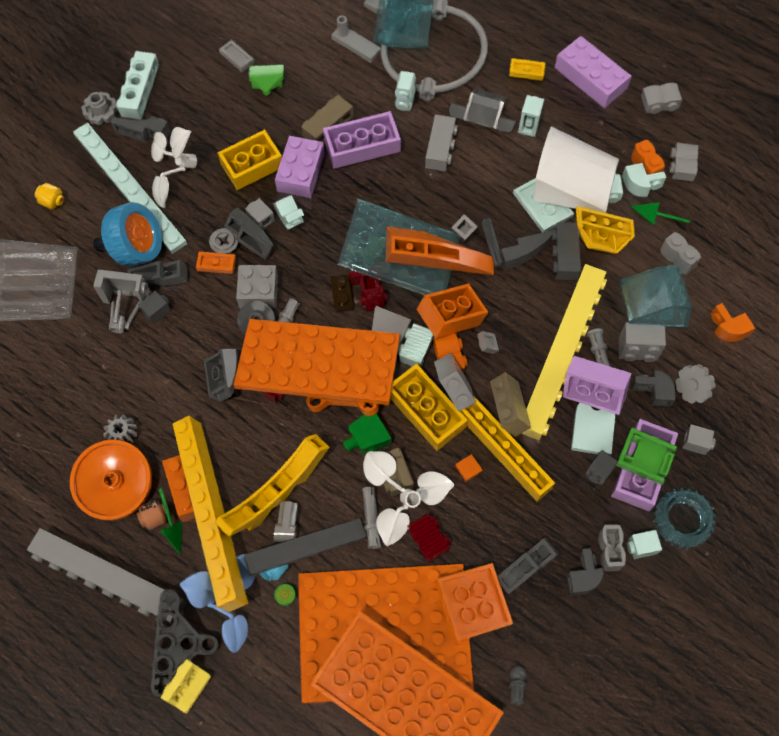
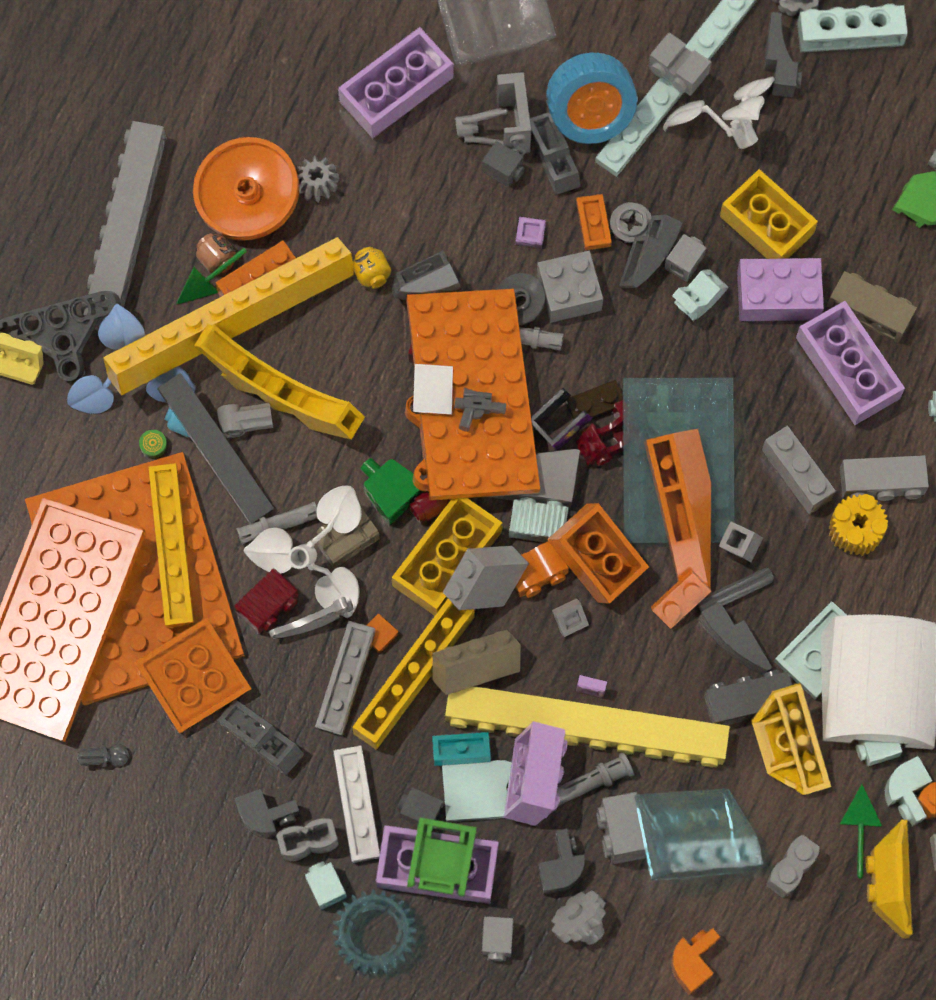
camera: 75 degrees right, 5 degrees up
(68, 359) = (396, 82): none -> lavender brick
(126, 181) = (679, 64): none -> light grey brick
(201, 408) = (371, 267): none -> yellow head
(208, 304) = (530, 232): none -> lavender tile
(310, 382) = (433, 389): none -> white sticker
(332, 357) = (475, 405): none -> dark grey piece
(365, 319) = (548, 409): none -> black piece
(371, 595) = (171, 545): none -> yellow plate
(387, 414) = (427, 509): none -> dark red brick
(423, 186) = (798, 470): none -> light grey brick
(451, 507) = (314, 620): none -> light grey piece
(468, 162) = (863, 511): none -> yellow brick
(492, 272) = (680, 599): none -> orange plate
(497, 497) = (345, 678): none -> light grey tile
(538, 341) = (591, 686): none -> lavender tile
(564, 432) = (461, 749): none -> teal plate
(589, 510) = (356, 804): none -> white plate
(696, 200) = (891, 880): none -> yellow wedge

